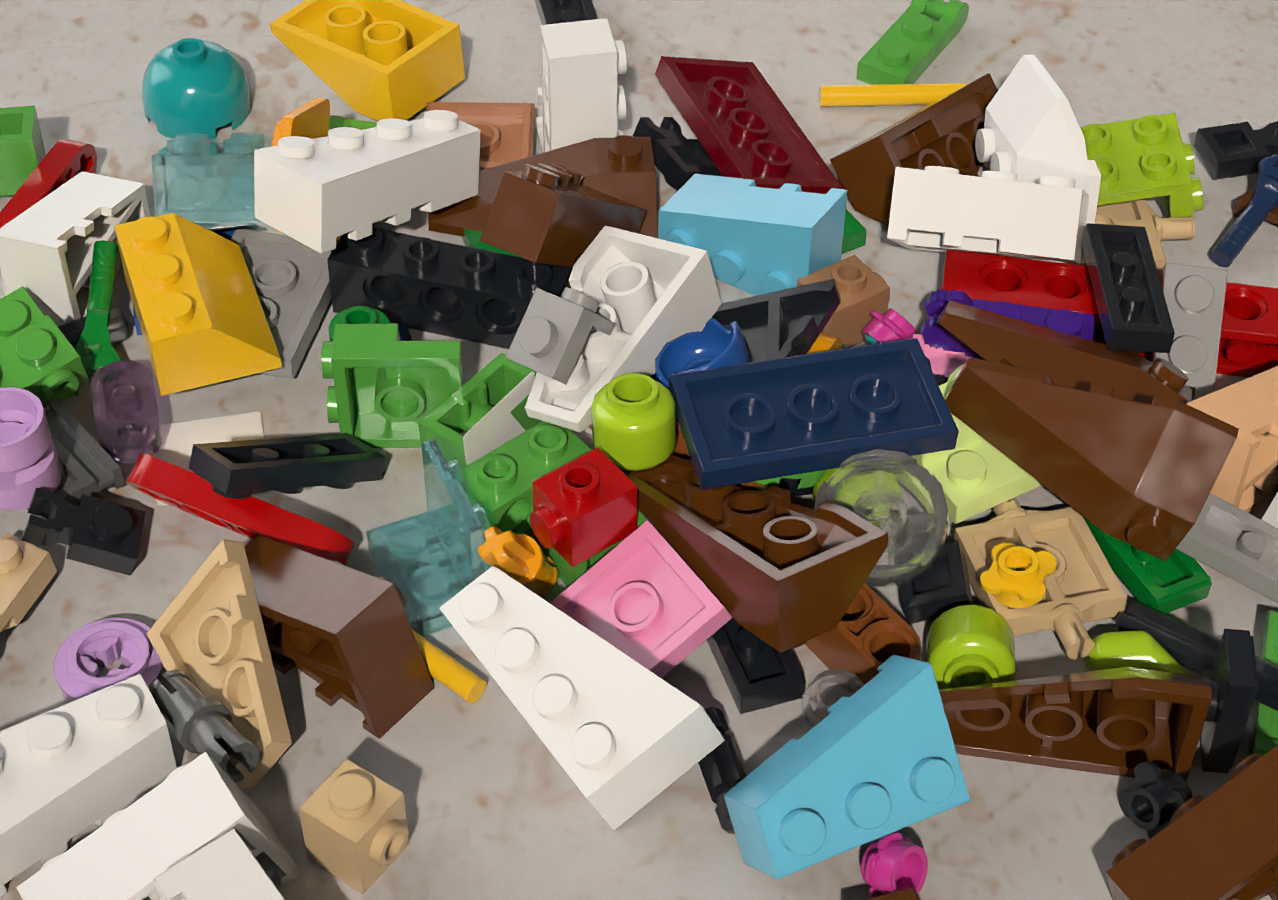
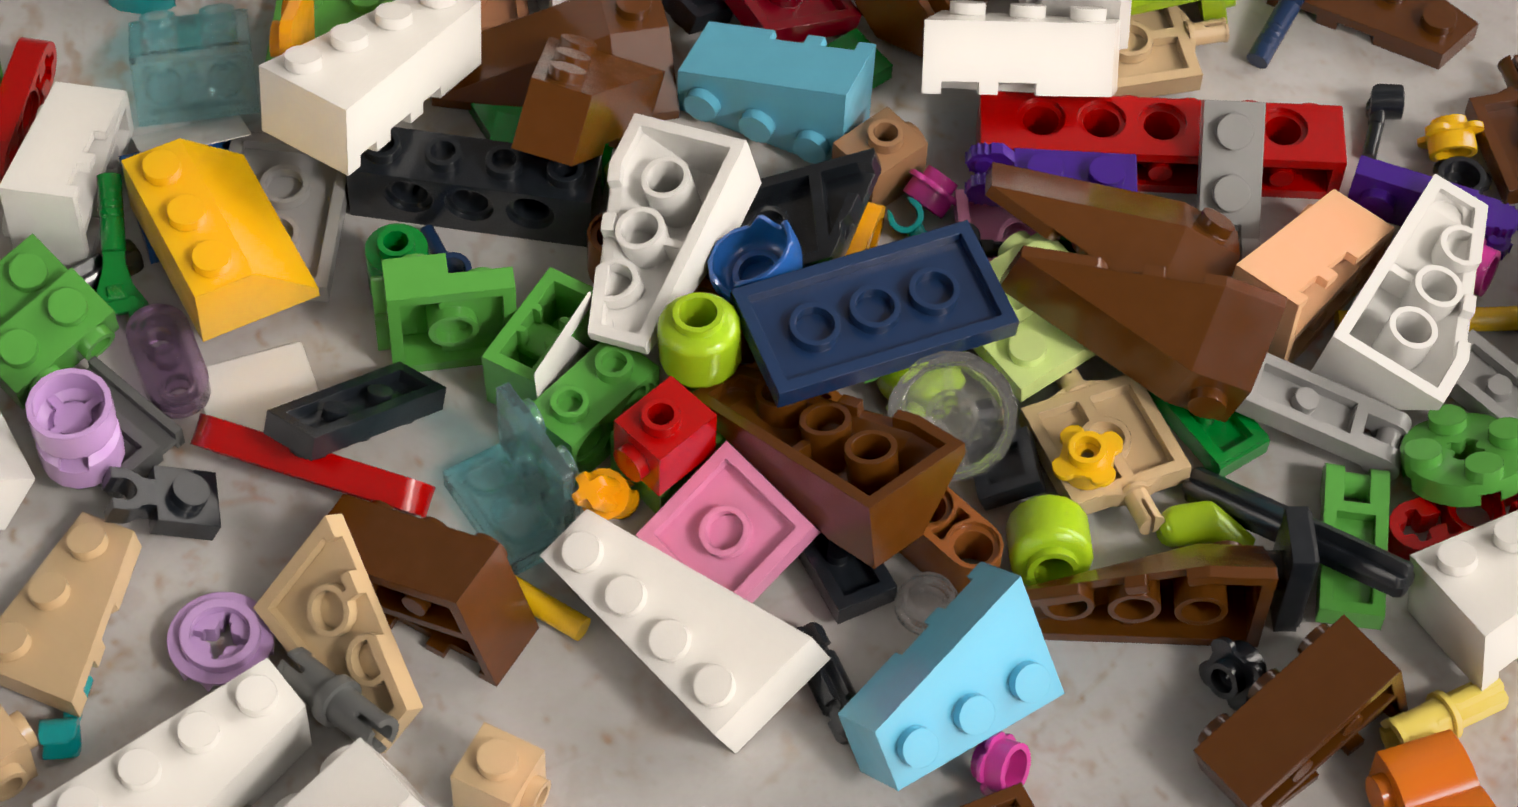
camera: 10 degrees left, 10 degrees up
(556, 332) = (609, 251): light grey bracket -> none
(1127, 289) = (1167, 127): black plate -> none

